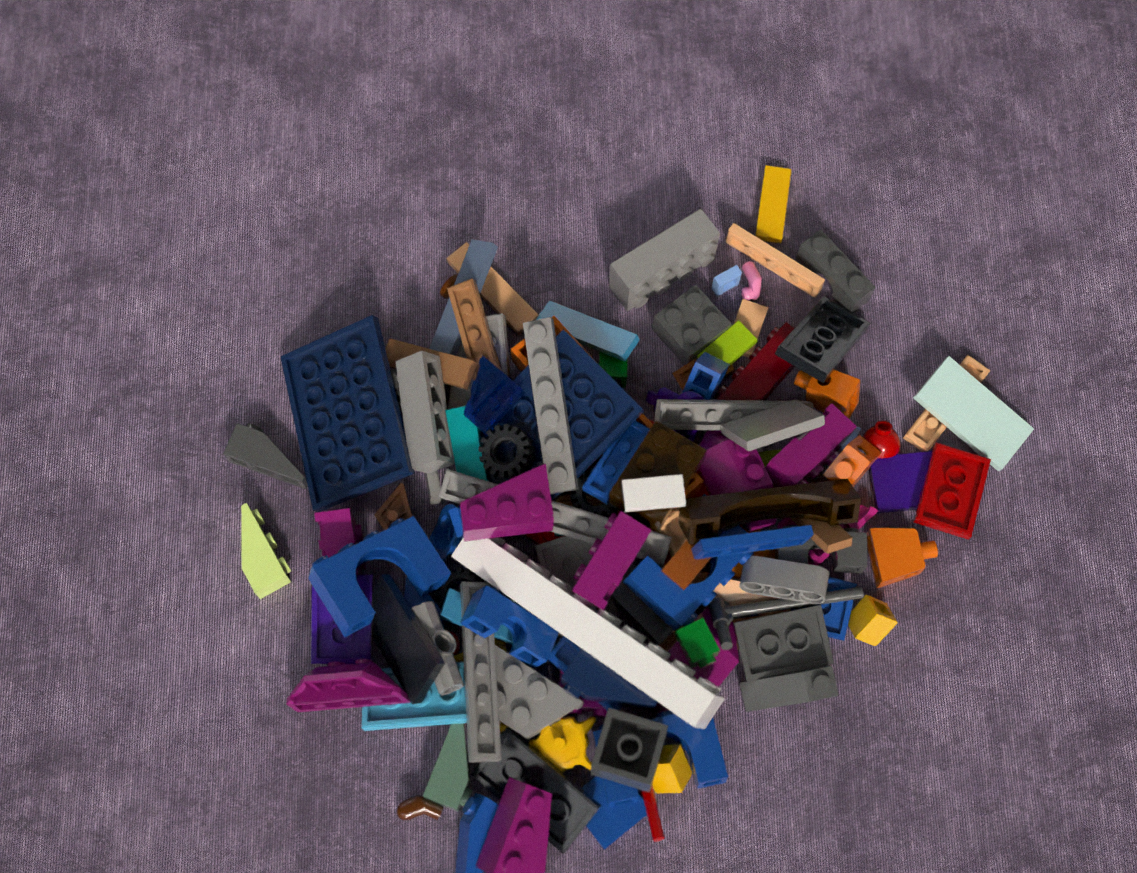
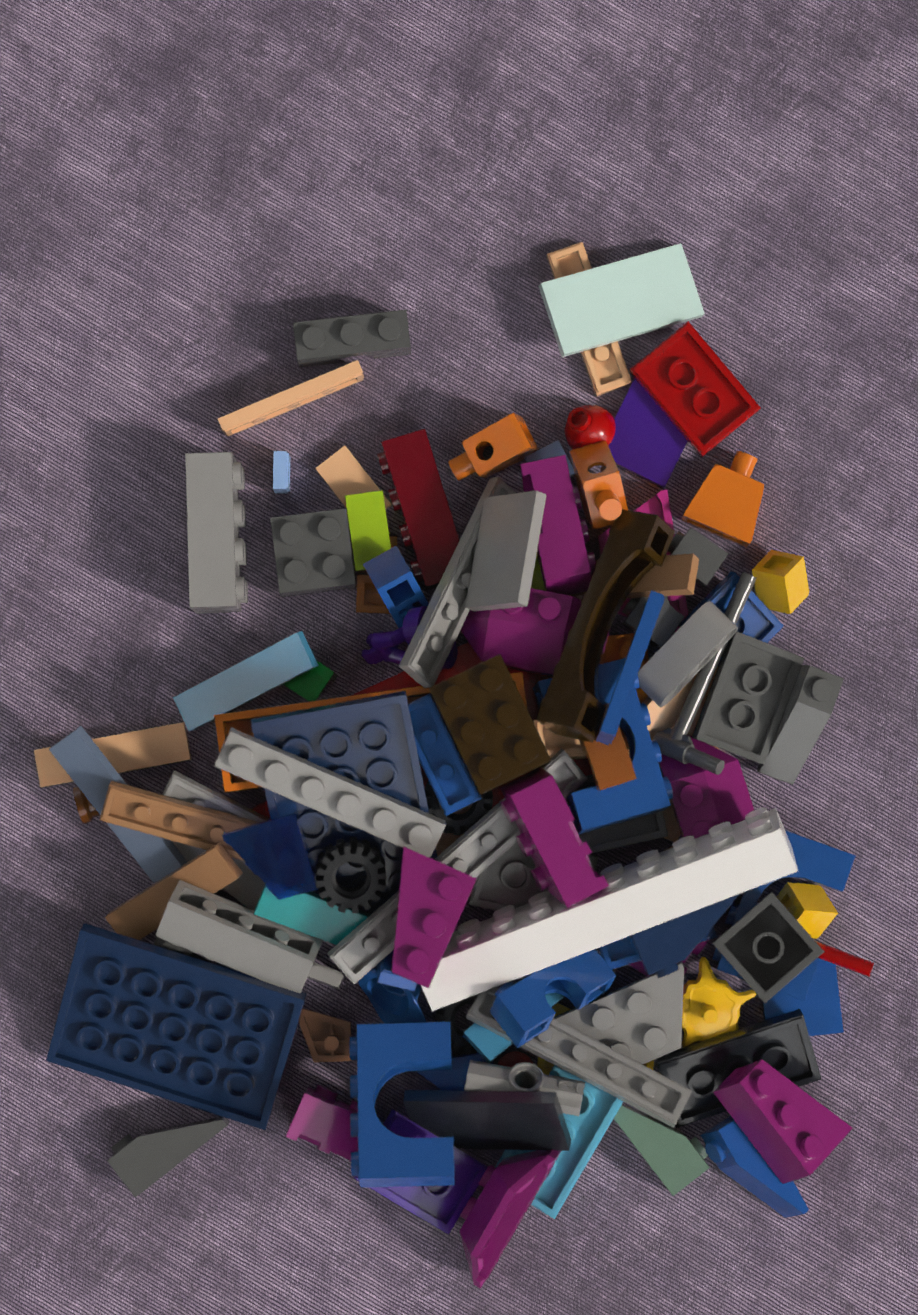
camera: 60 degrees left, 15 degrees up
(259, 560) = (292, 1225): yellowish green slope -> none
(417, 806) = (675, 1207): reddish brown arm -> none
(653, 493) = (516, 749): white tile -> none
(698, 644) = (701, 800): green brick -> none
(754, 279) = (301, 438): bright pink arm -> none
(773, 204) = (215, 348): yellow tile -> none
(822, 339) = (431, 415): black tile -> none

